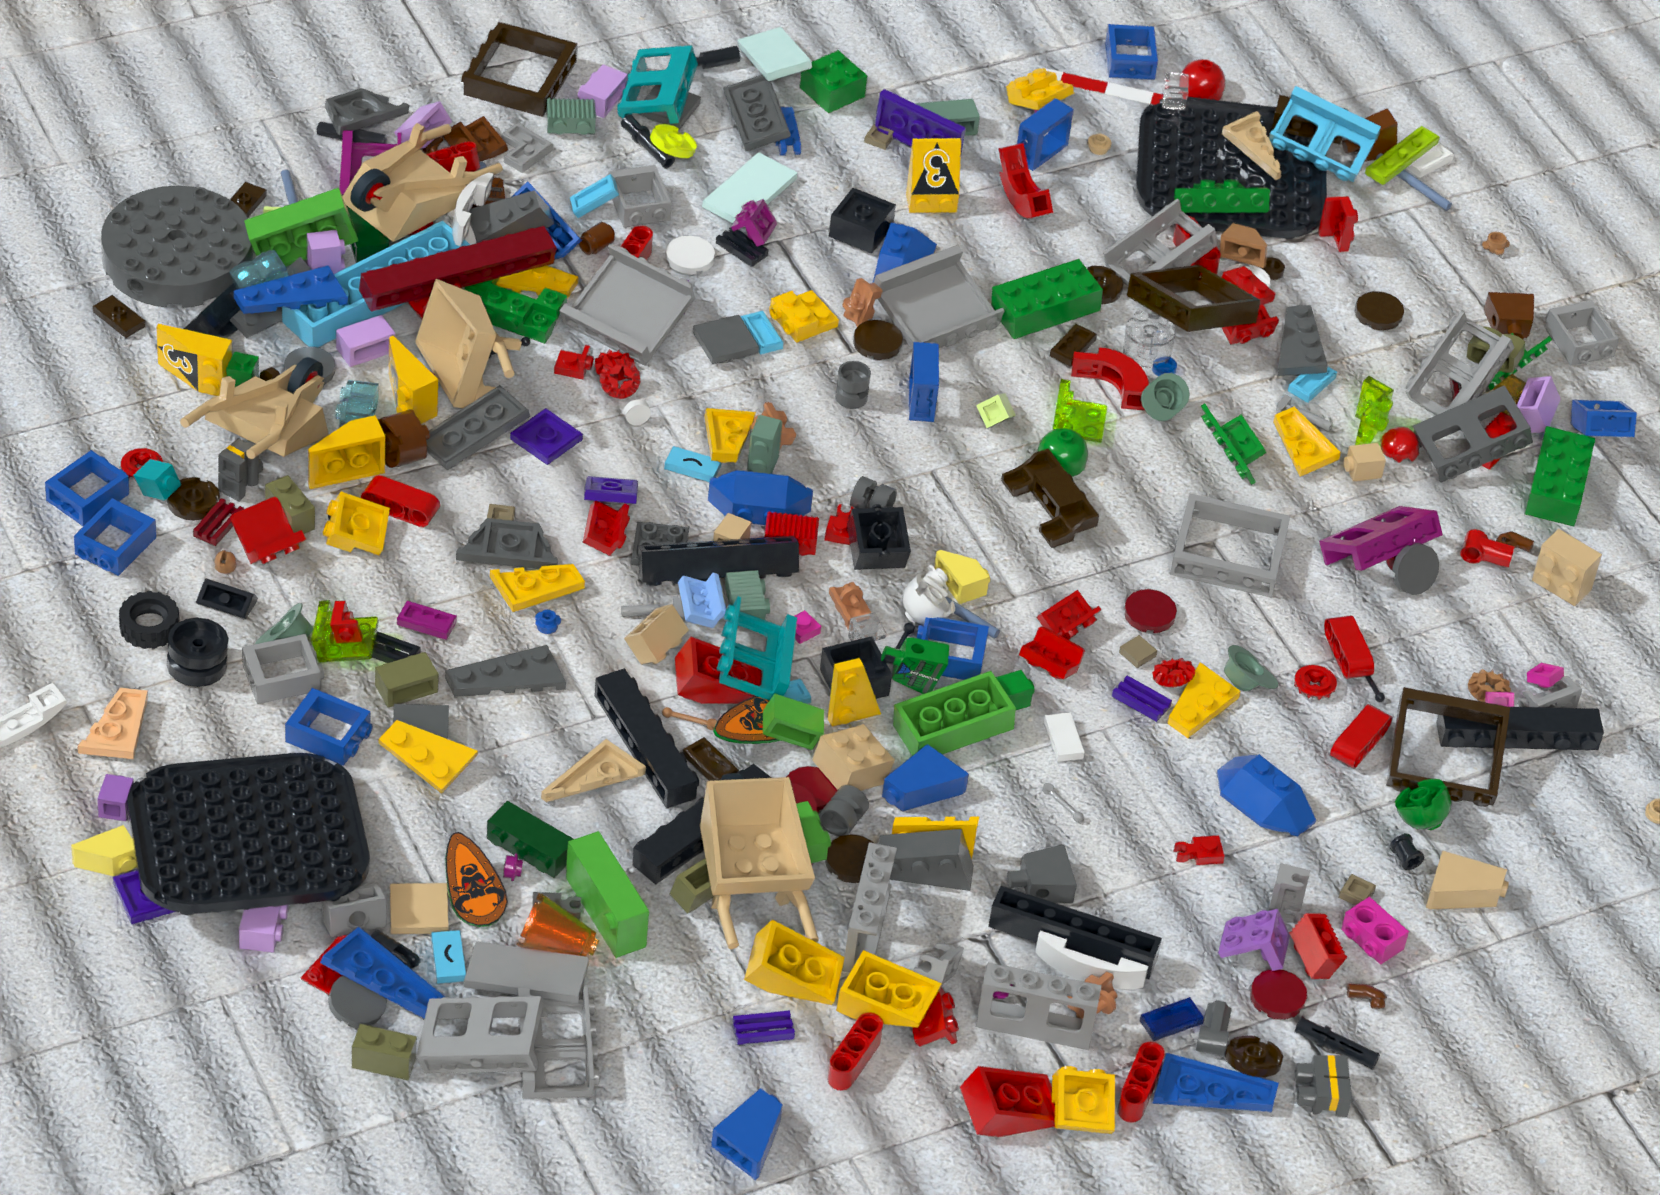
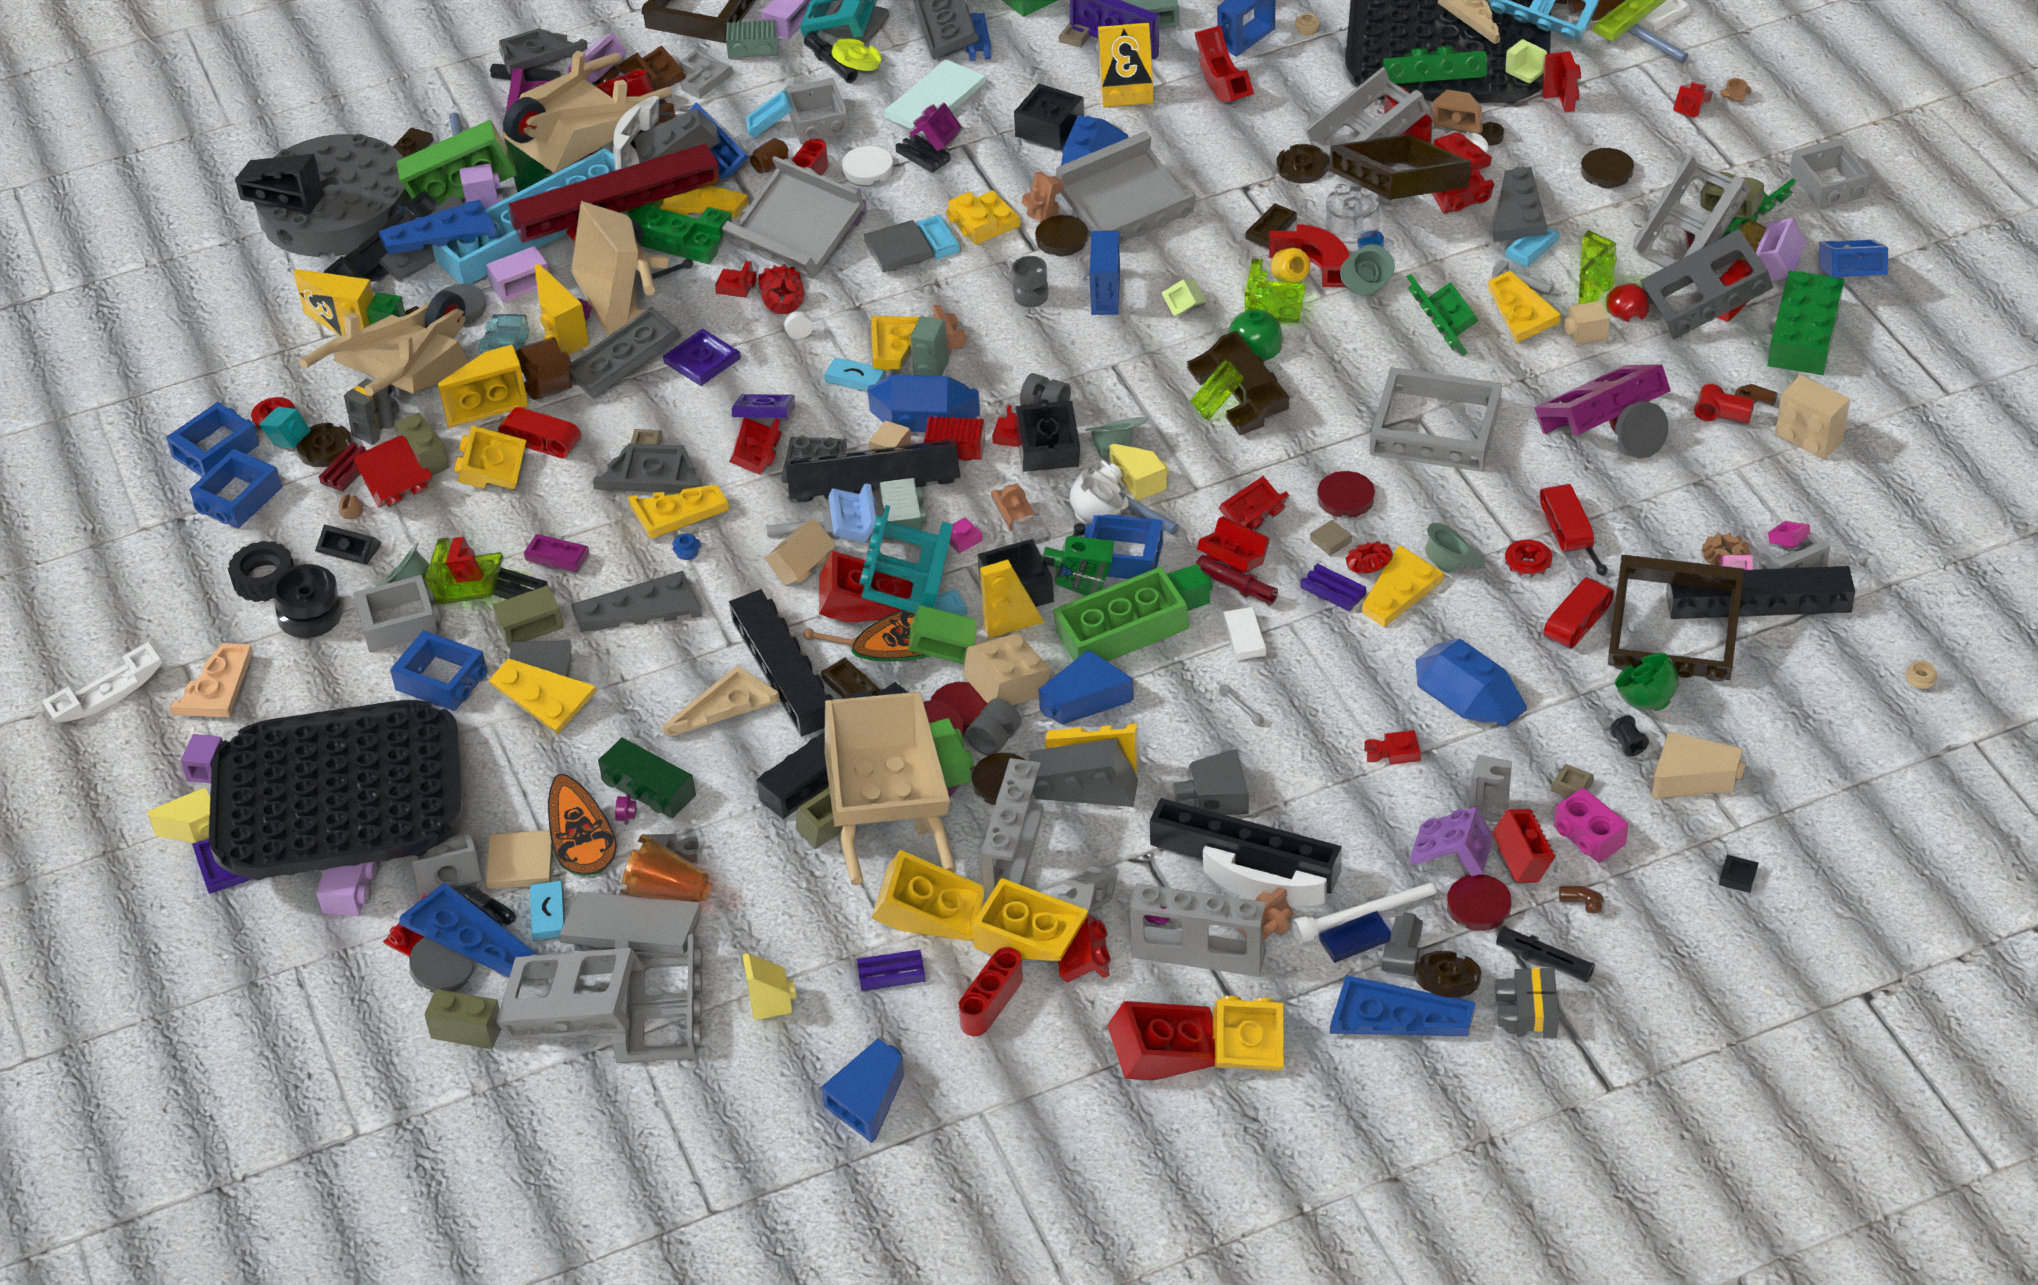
camera: 10 degrees right, 0 degrees up
(119, 316) = (268, 268): dark brown plate -> none
(135, 234) = (282, 182): none -> black wedge
(261, 269) = (411, 206): clear light blue brick -> none
(607, 894) = (723, 832): bright green brick -> none
(657, 1038) = (768, 988): none -> light yellow slope
(940, 538) = (1114, 433): none -> sand green piece
(1030, 500) = (1216, 386): none -> clear neon green tile
(1047, 298) = (1243, 180): green brick -> none
(1064, 691) = (1245, 584): none -> dark red pin
(1093, 387) = (1290, 265): none -> yellow head
(1129, 1010) = (1306, 928): none -> white piece
(1141, 1081) = (1315, 1009): red beam -> none
(1305, 200) = (1525, 61): none -> yellowish green panel
(1456, 248) = (1691, 98): none -> red bracket
(1501, 980) = (1738, 873): none -> black tile
(1510, 312) = (1751, 157): reddish brown torso -> none

